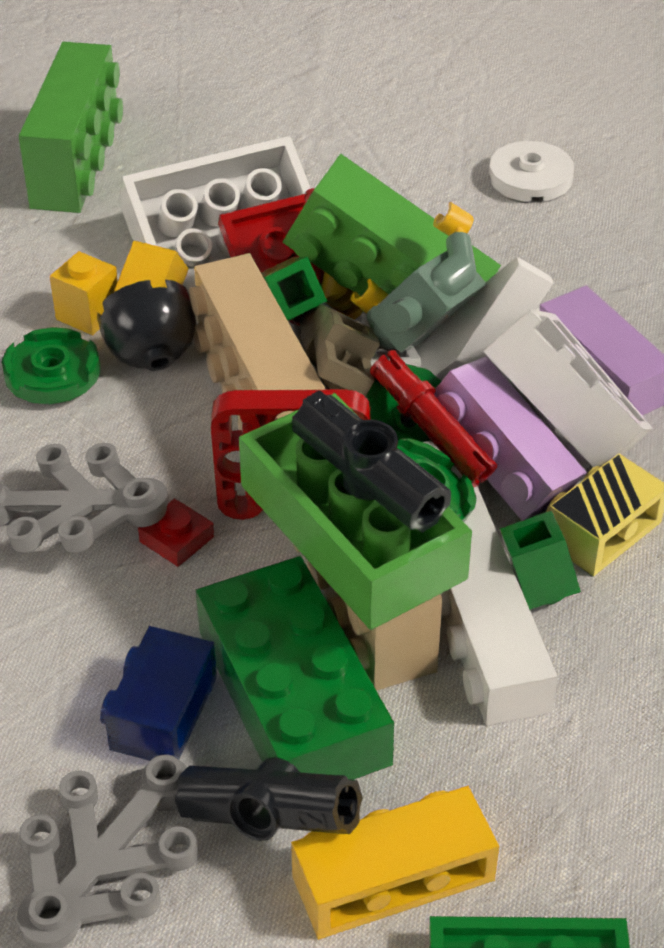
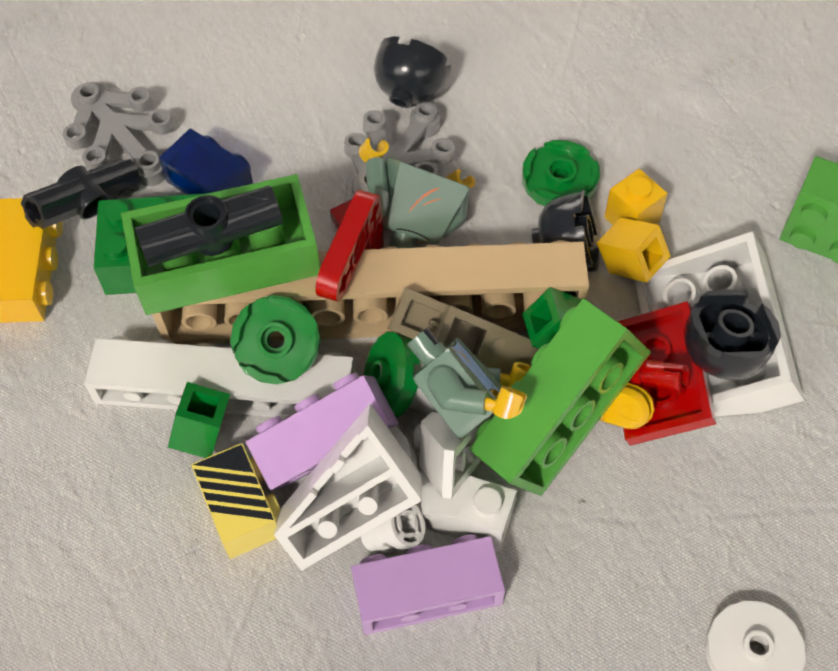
camera: 110 degrees right, 15 degrees up
(148, 445) = (413, 199): none -> sand green torso
(268, 161) = (730, 334): none -> black cylinder
(418, 401) = (356, 358): red pin -> none

